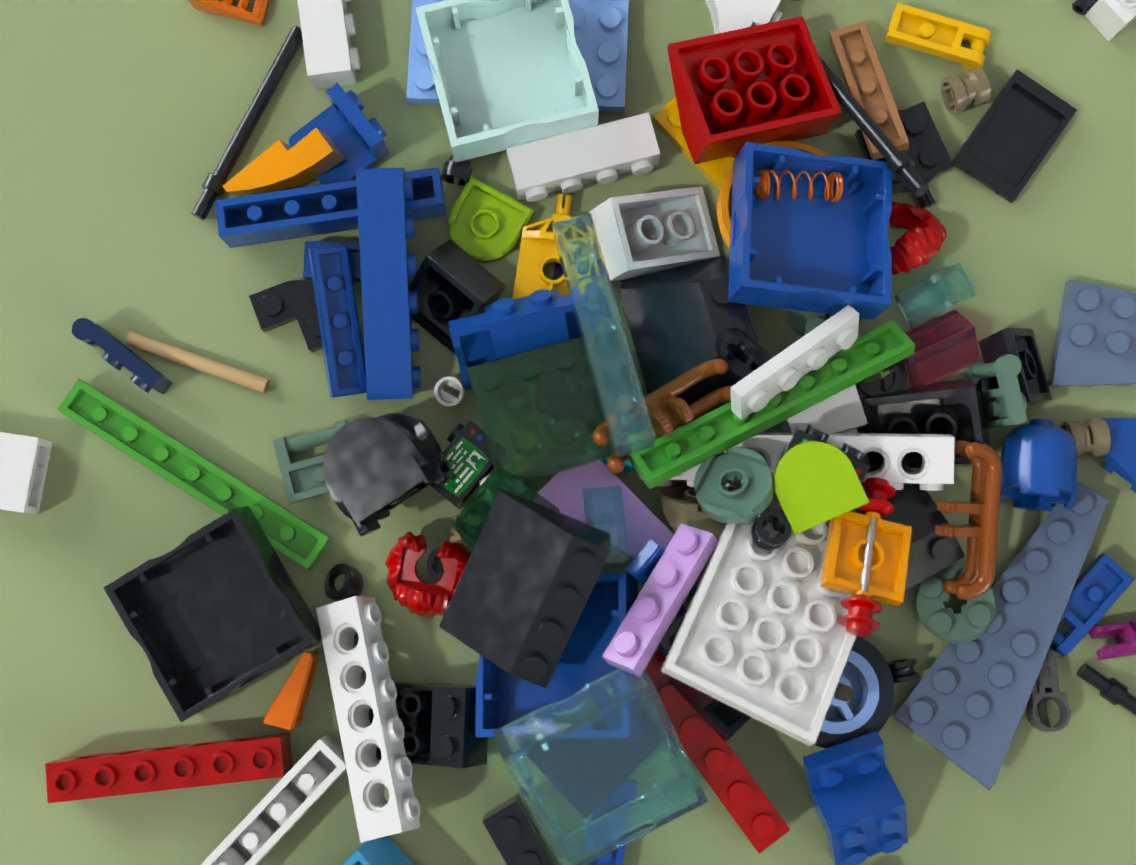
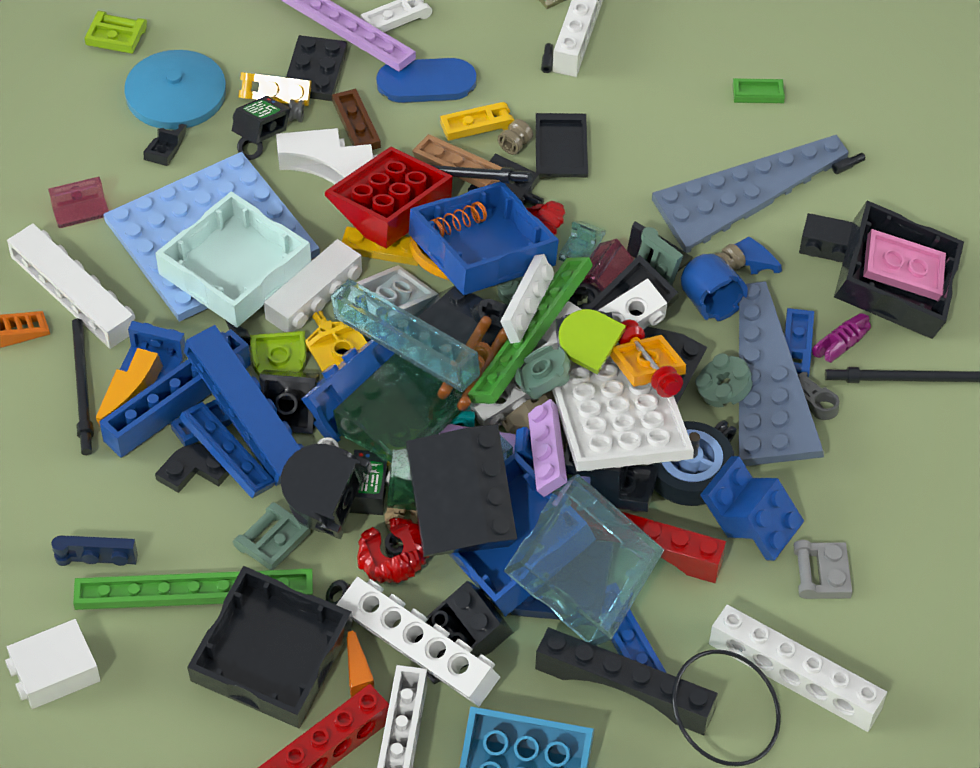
camera: 35 degrees left, 30 degrees down
(197, 362) = (159, 528): tan bar -> none
(780, 524) = (582, 378): black bush -> none
(982, 523) = (698, 316): dark orange piece -> none

